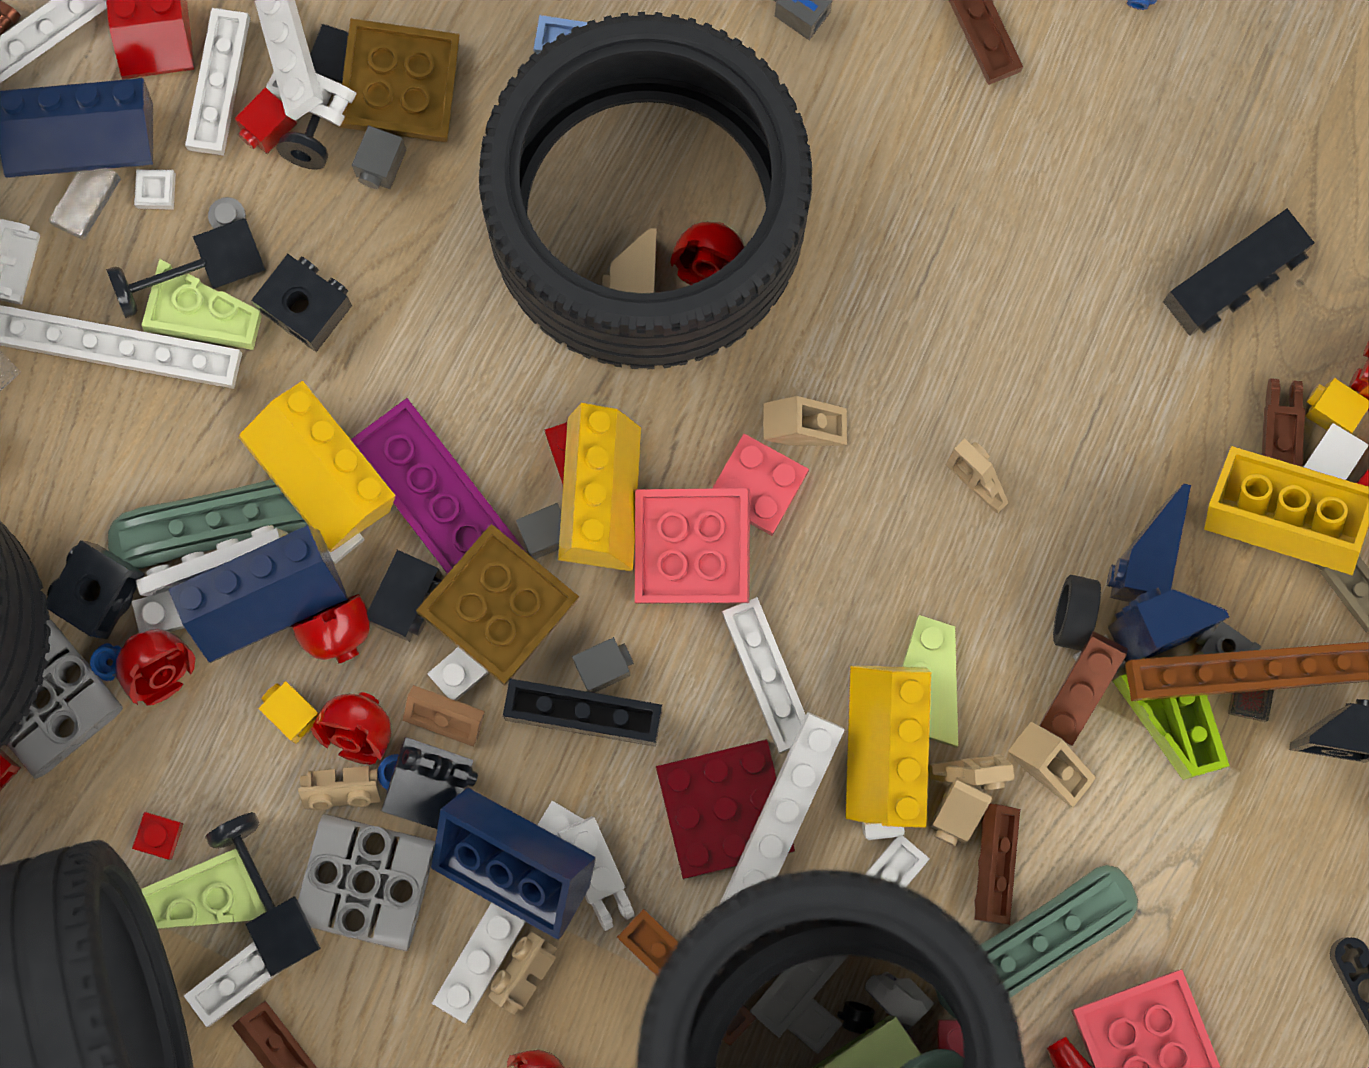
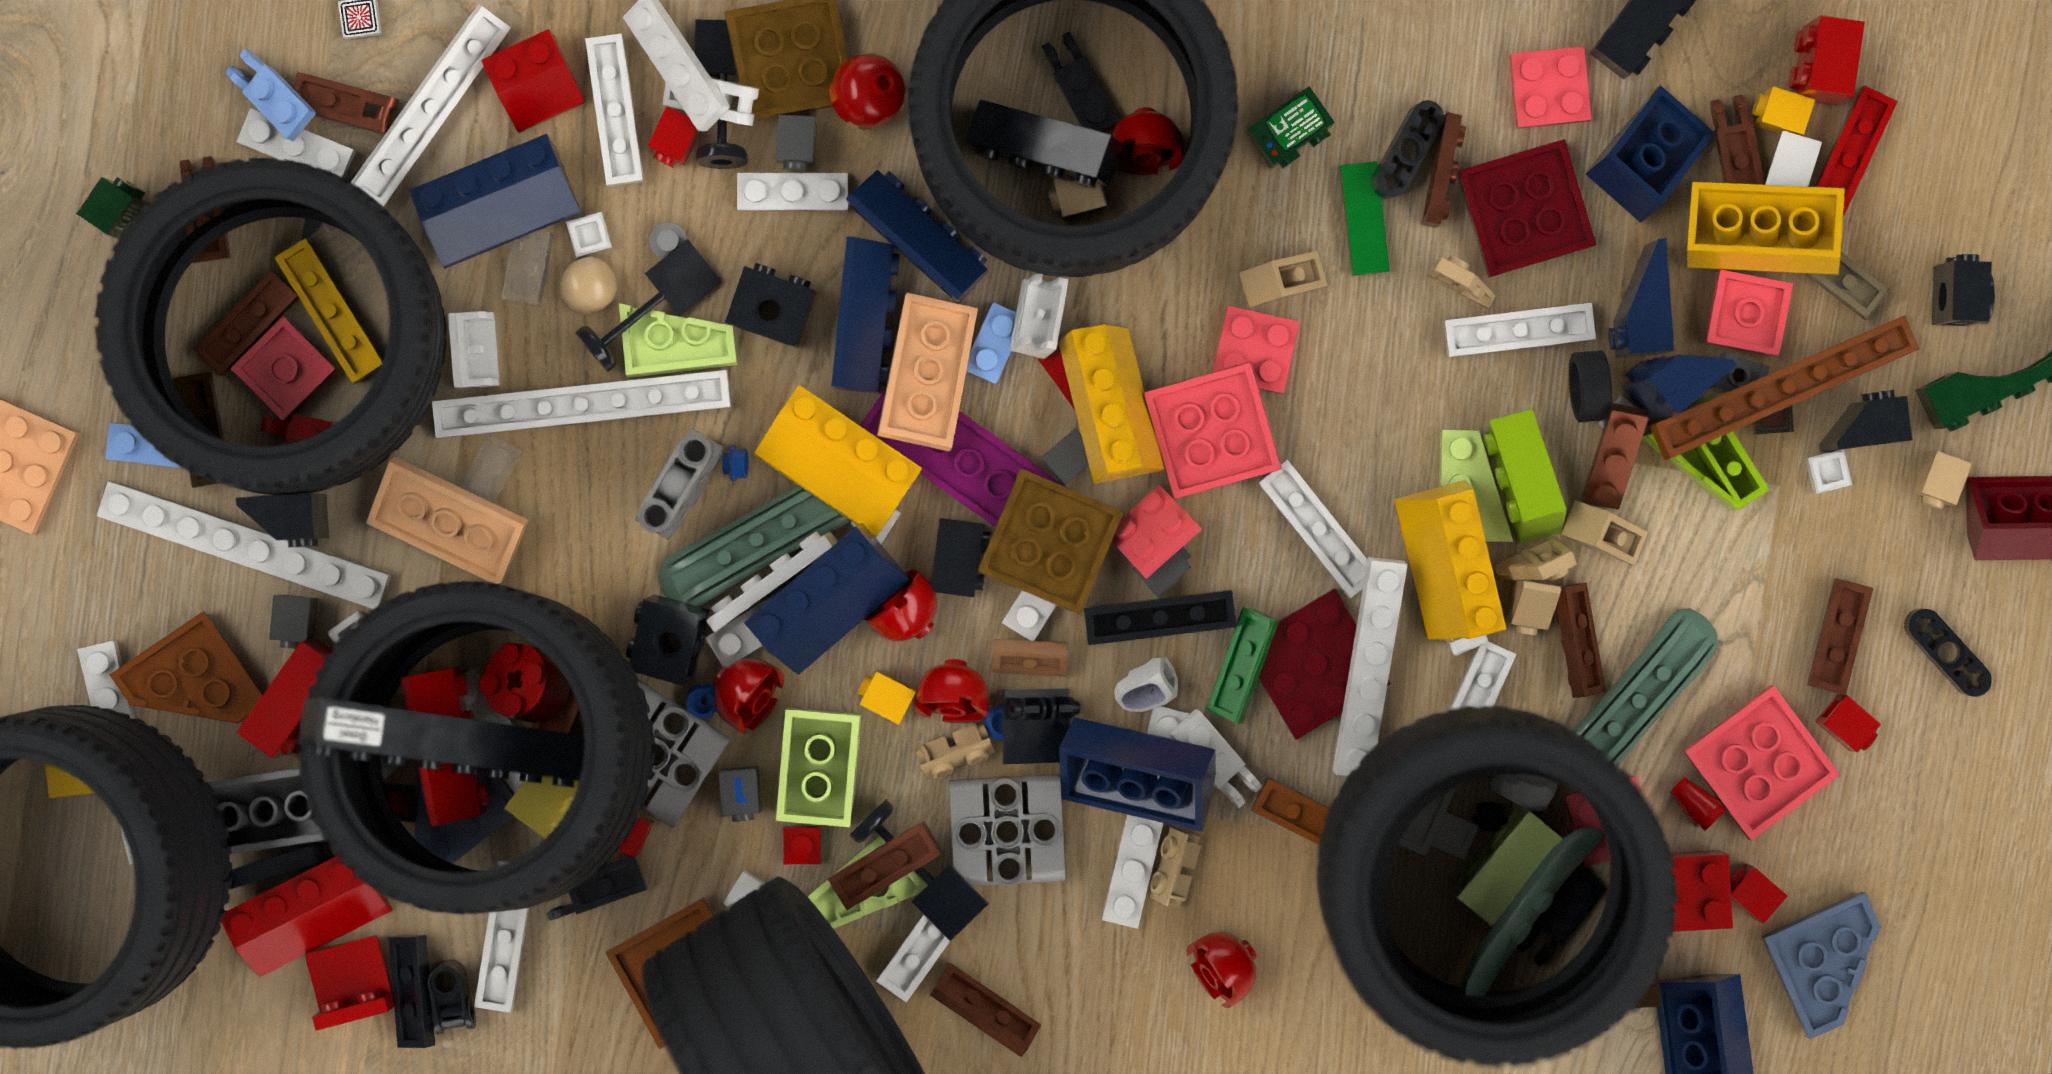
camera: 15 degrees left, 10 degrees up
(113, 763) = (740, 793): none -> dark grey brick
(136, 234) = (588, 285): none -> tan hair
(153, 437) = (679, 484): none -> light grey connector
(197, 759) = (818, 767): none -> yellowish green brick
(219, 442) = (735, 463): none -> blue plate
(229, 877) = (885, 865): none -> copper plate
(360, 206) = (792, 191): none -> white plate
(387, 336) = (863, 315): none -> dark blue slope
(431, 407) = (927, 372): none -> light nougat plate
(456, 129) = (867, 91): none -> red cylinder
(464, 278) = (917, 235): none -> dark blue slope
(507, 403) = (992, 344): none -> light blue plate
(551, 779) = (1147, 686): none -> white rock
(556, 387) = (1038, 316): none -> white hinge
(603, 626) = (1154, 531): none -> coral plate
(612, 224) = (1044, 143): none -> black brick
(651, 786) = (1242, 665): none -> green tile
(665, 191) = (1081, 87): none -> black hinge
(854, 284) = (1290, 128): none -> brick
(901, 391) = (1364, 220): none -> green tile
(937, 346) = (1412, 122): none -> black beam
(988, 684) = (1526, 476): none -> lime wedge
(991, 367) = (1443, 170): none -> copper plate
(1022, 541) = (1519, 330): none -> white plate
(1061, 427) = (1526, 208): none -> dark red plate
(1116, 321) = (1550, 87): none -> coral plate
(1196, 410) = (1650, 154): none -> dark blue slope
(1248, 1032) = (1849, 723): none -> red brick
(1254, 590) = (1748, 313): none -> coral plate
(1262, 940) = (1840, 636): none -> copper plate
(1292, 771) = (1828, 471): none -> white tile

